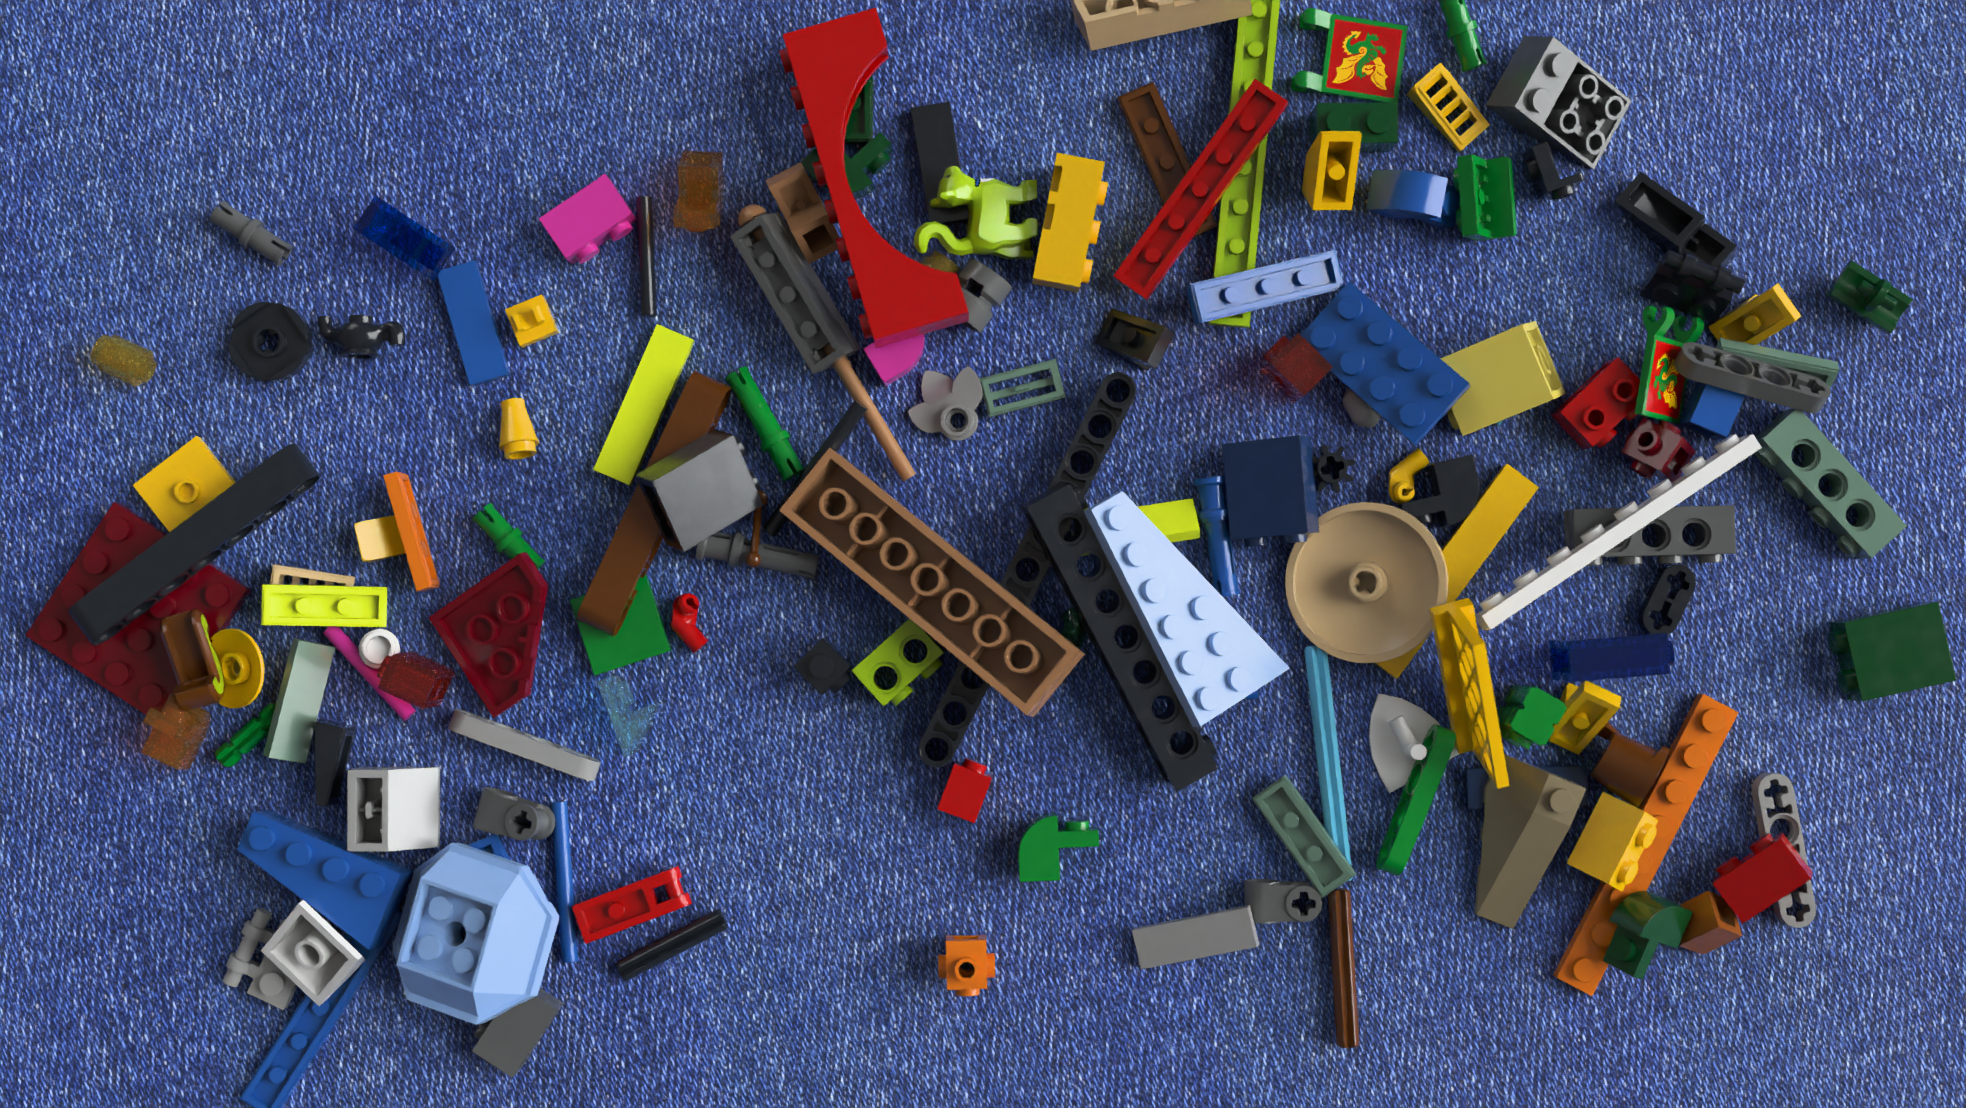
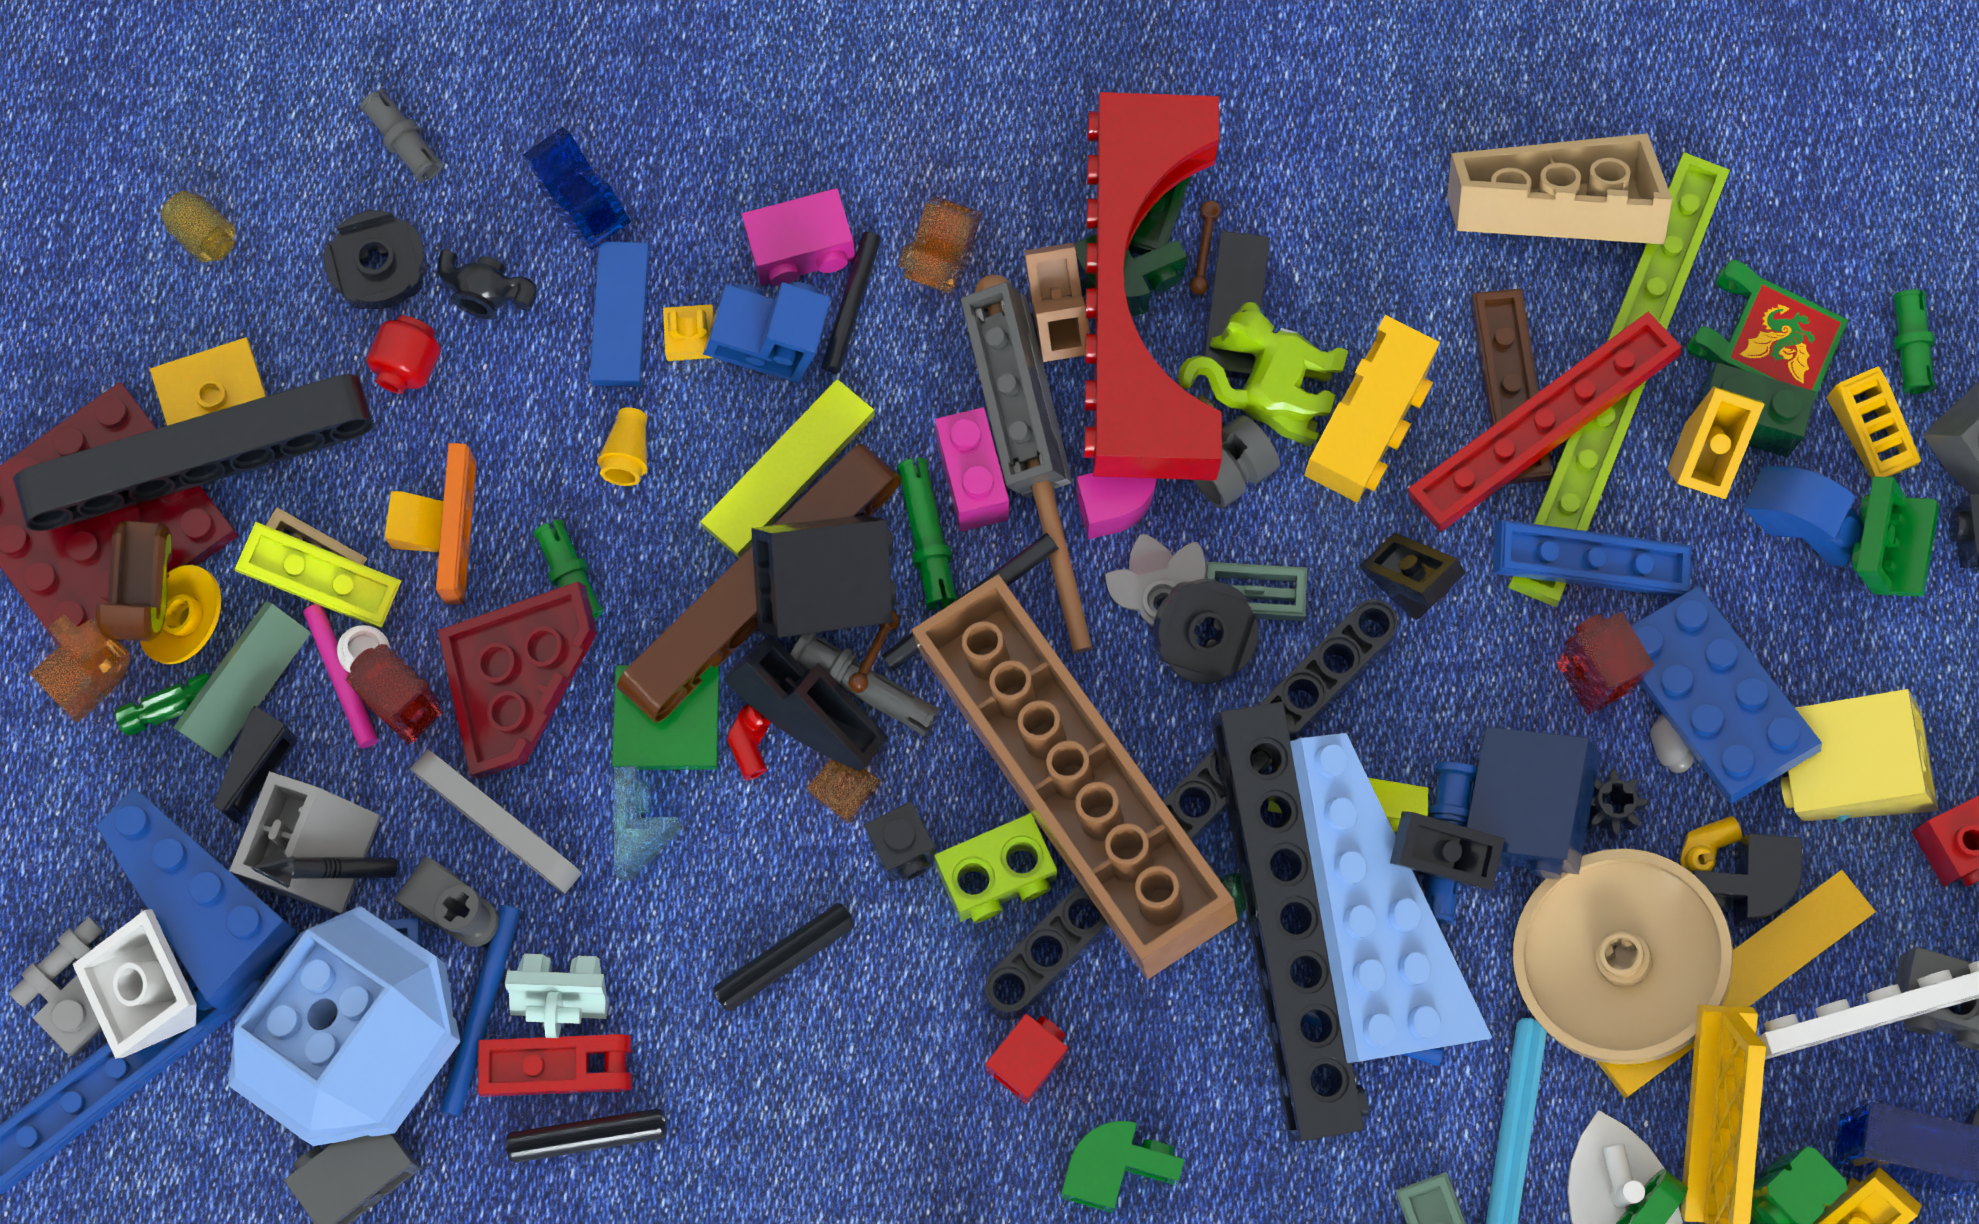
camera: 20 degrees right, 15 degrees down
(321, 413) = (403, 354): none -> red head
(385, 840) = (283, 869): none -> black piece
(592, 307) = (766, 332): none -> blue brick
(616, 859) = (555, 995): none -> light aqua hips
(720, 586) = (805, 704): none -> black slope
(767, 634) = (843, 789): none -> clear orange tile
(767, 773) = (783, 957): none -> black axle
(782, 364) = (972, 469): none -> dark pink brick
(897, 93) = (1209, 212): none -> reddish brown hinge
(979, 420) = (1217, 657): none -> black plate
(1220, 551) = (1447, 851): none -> black slope

